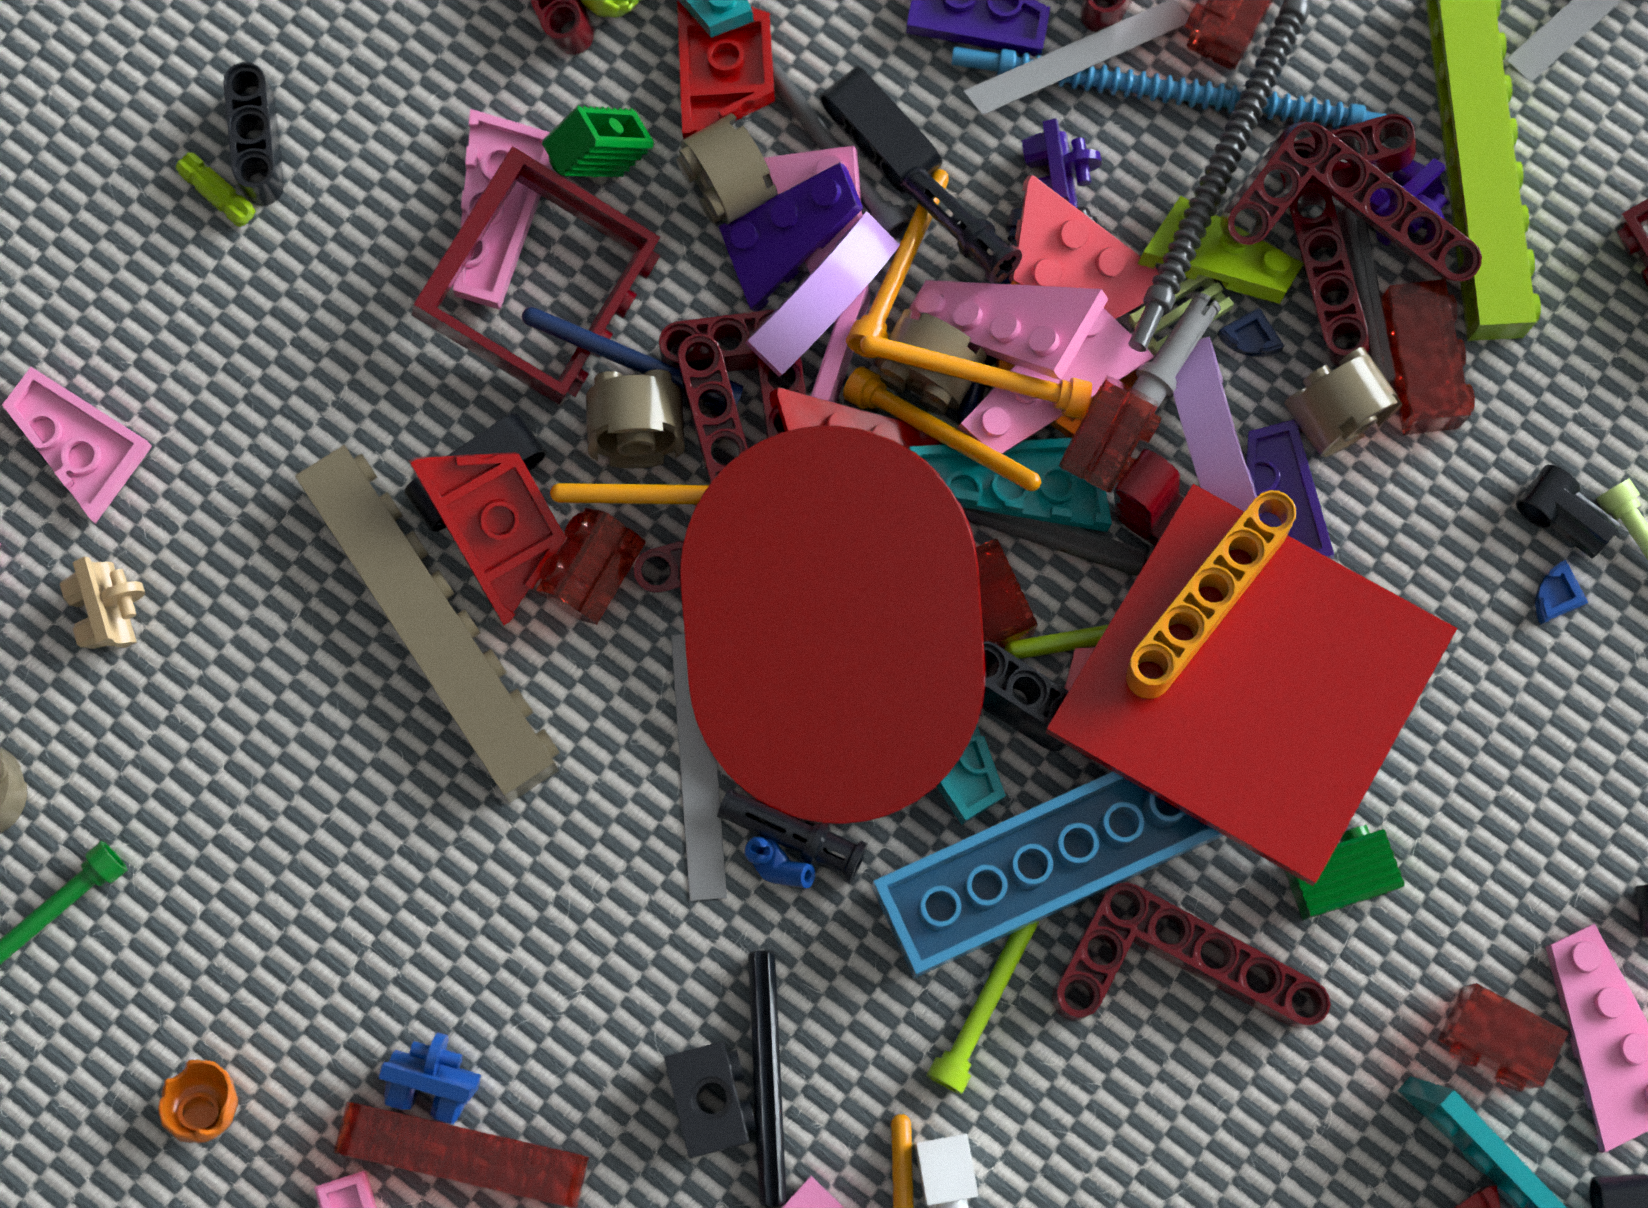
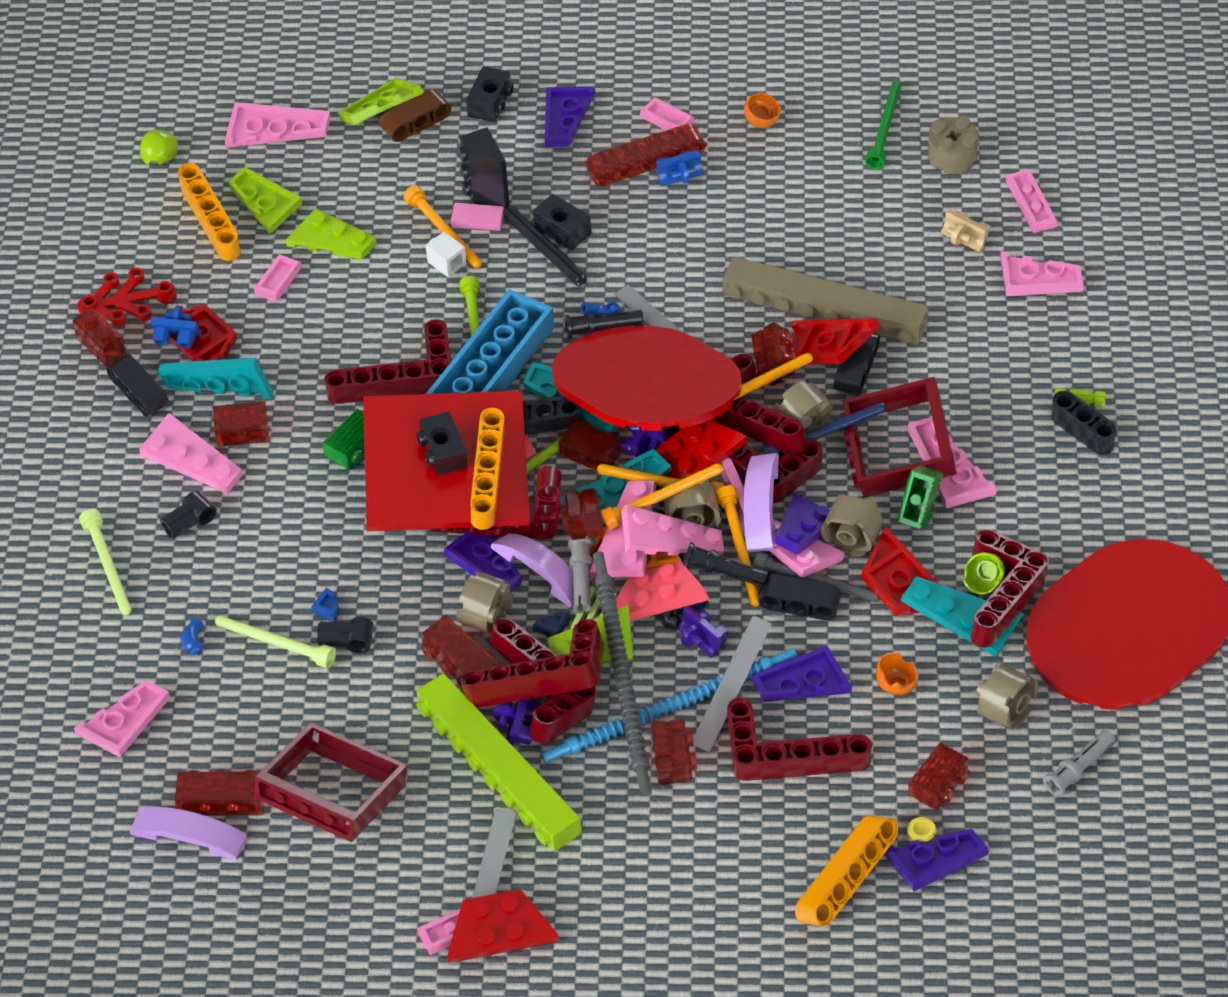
camera: 150 degrees right, 25 degrees down
(1261, 655) = (442, 443): none -> black brick

